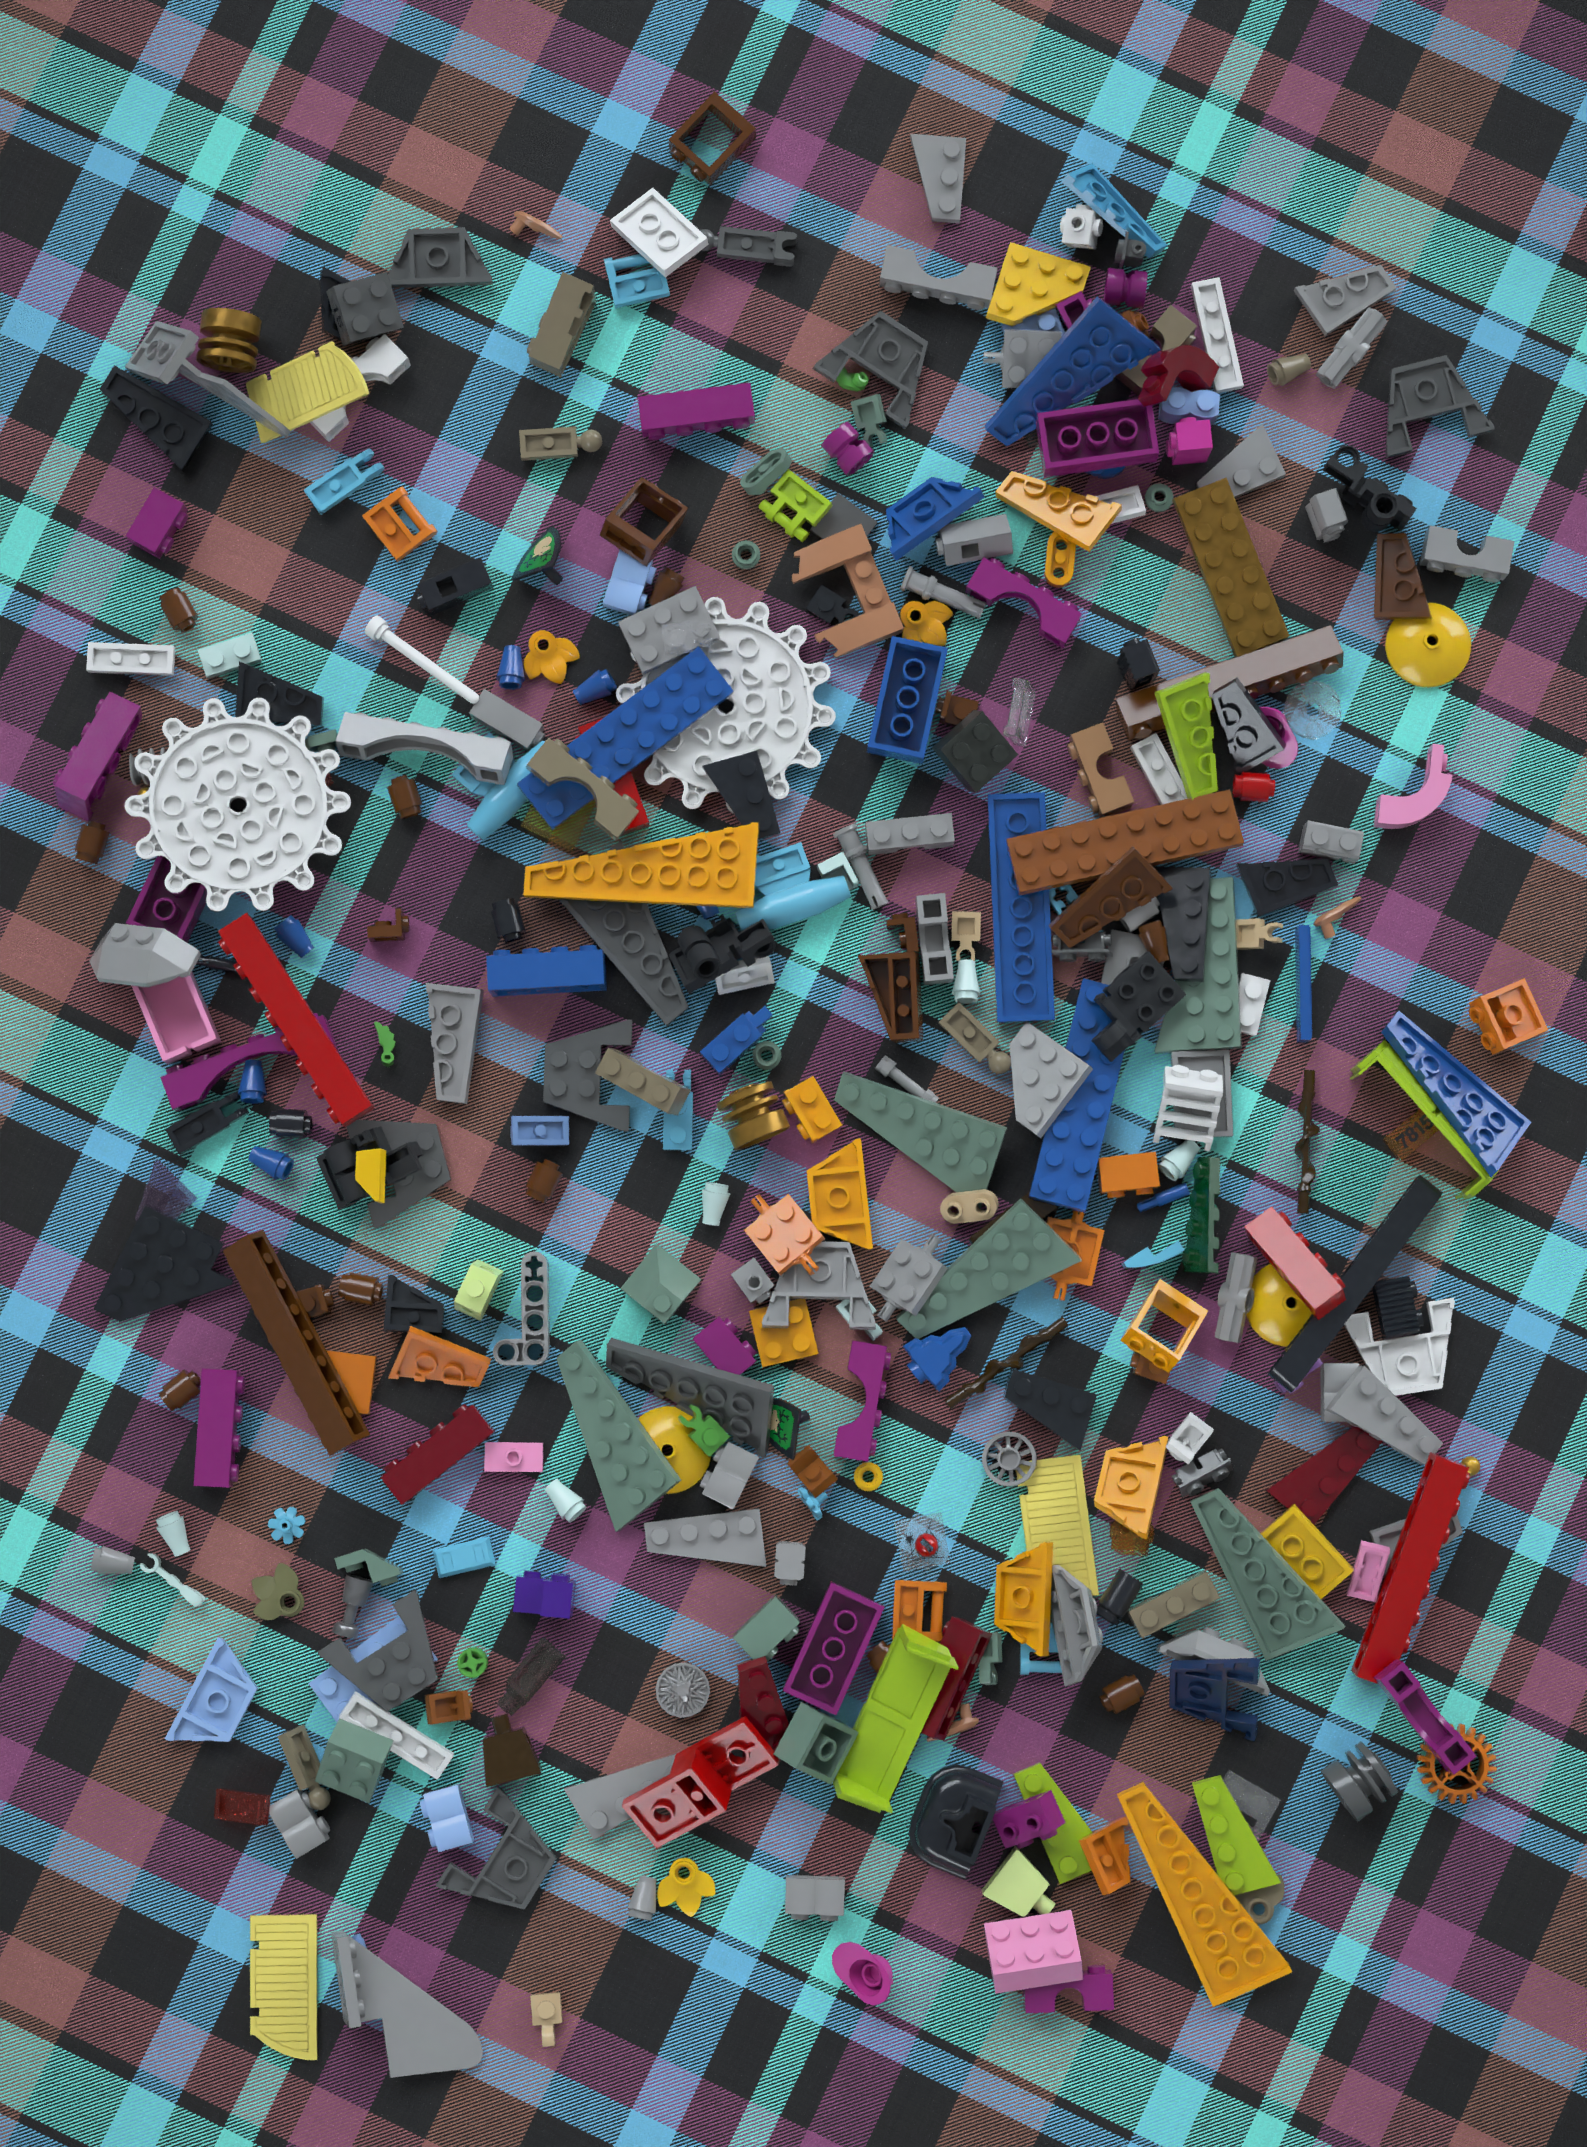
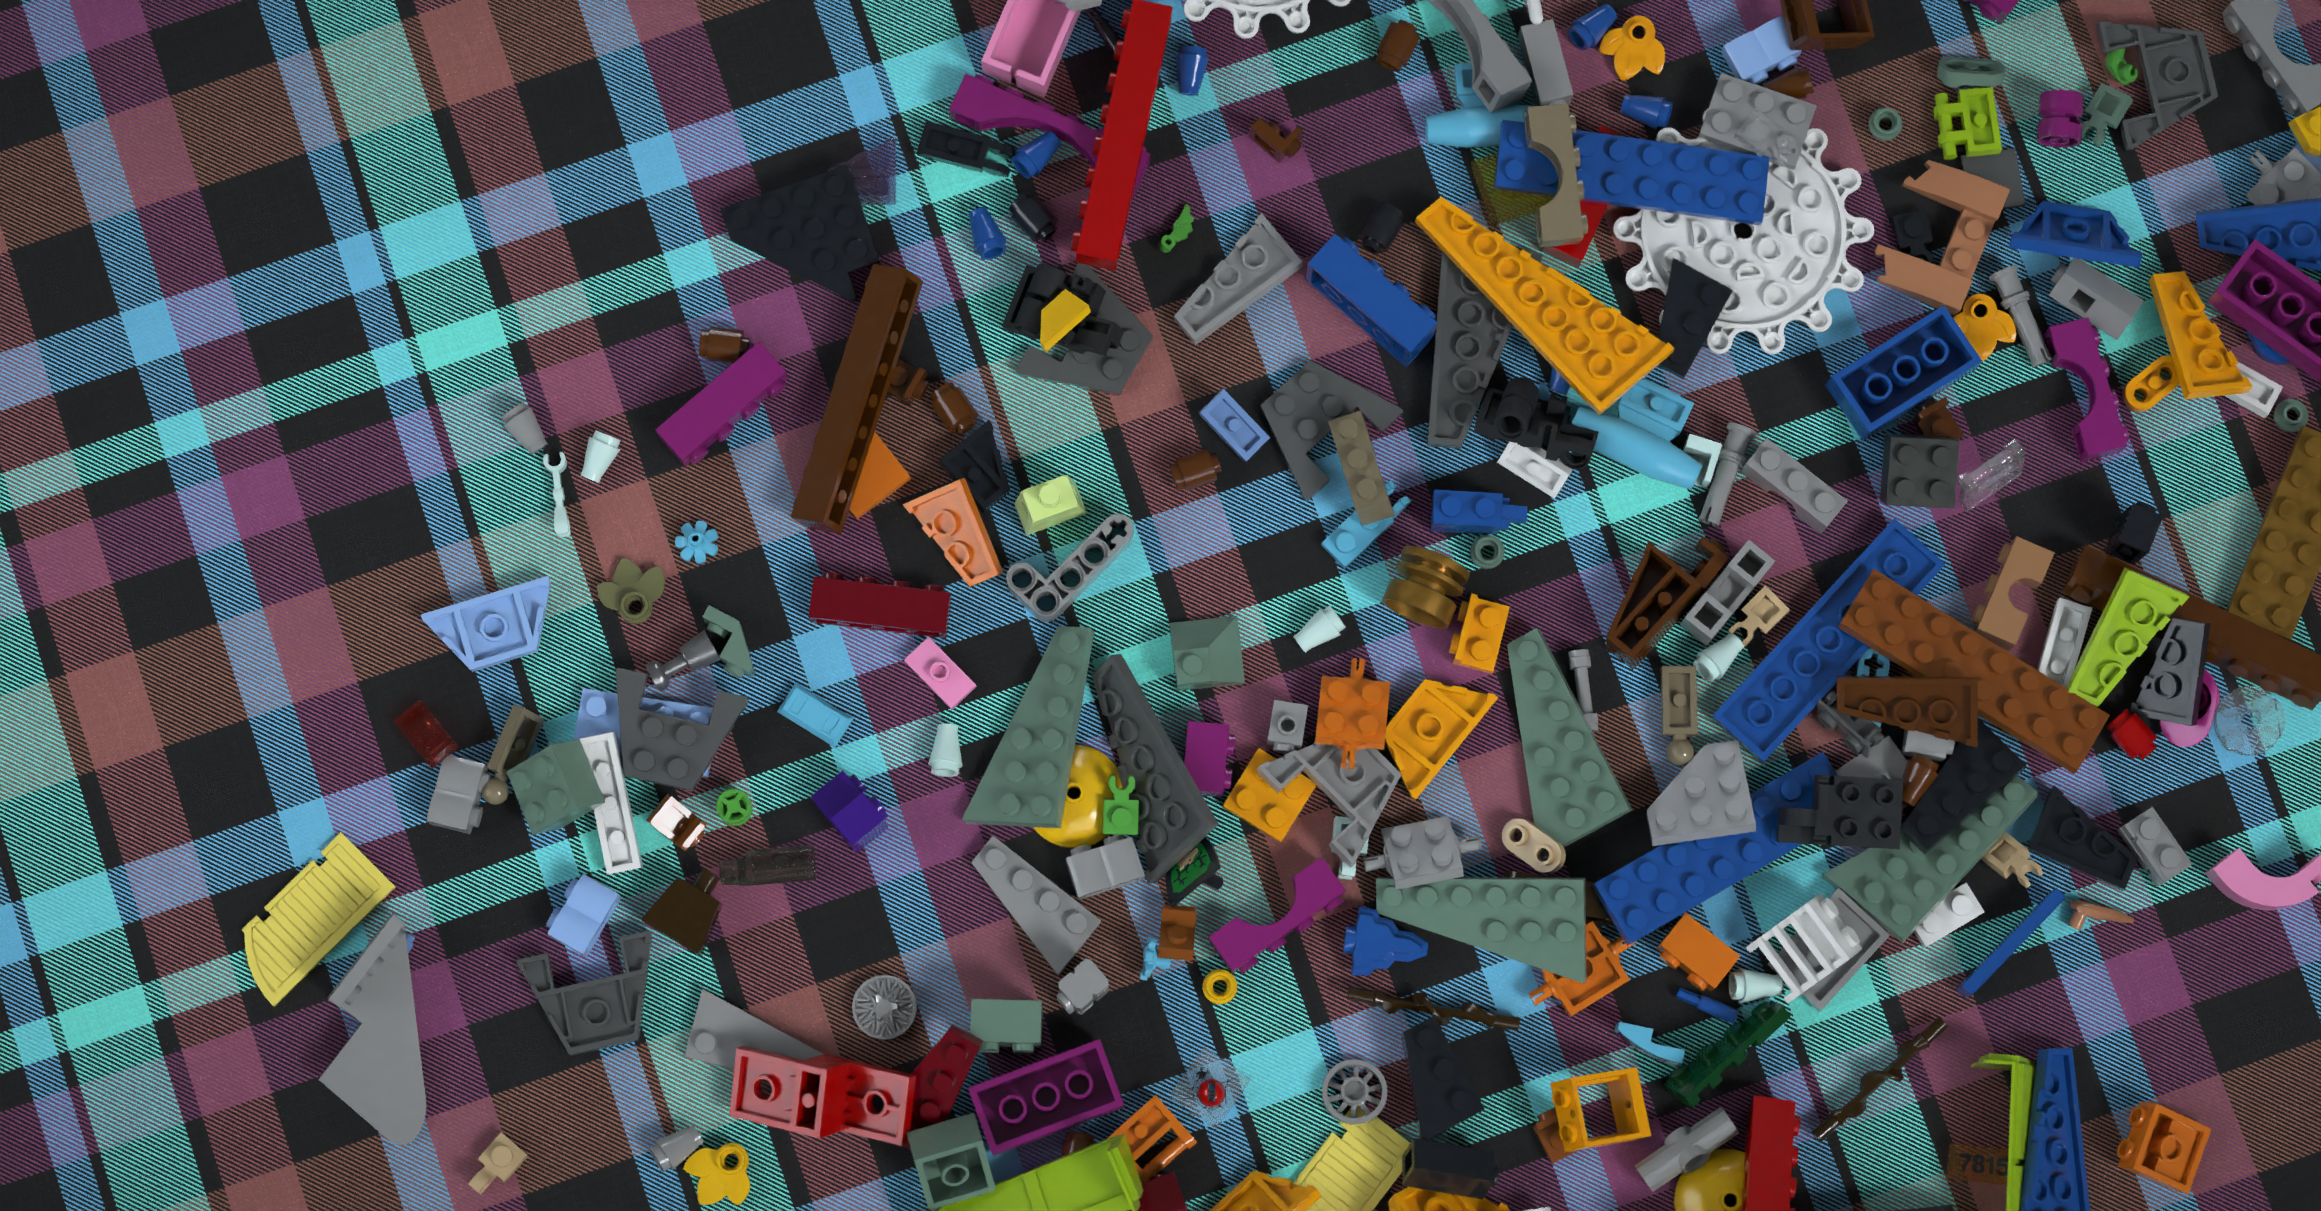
camera: 45 degrees right, 5 degrees down
(1110, 1450) = (1448, 1168): none -> black brick

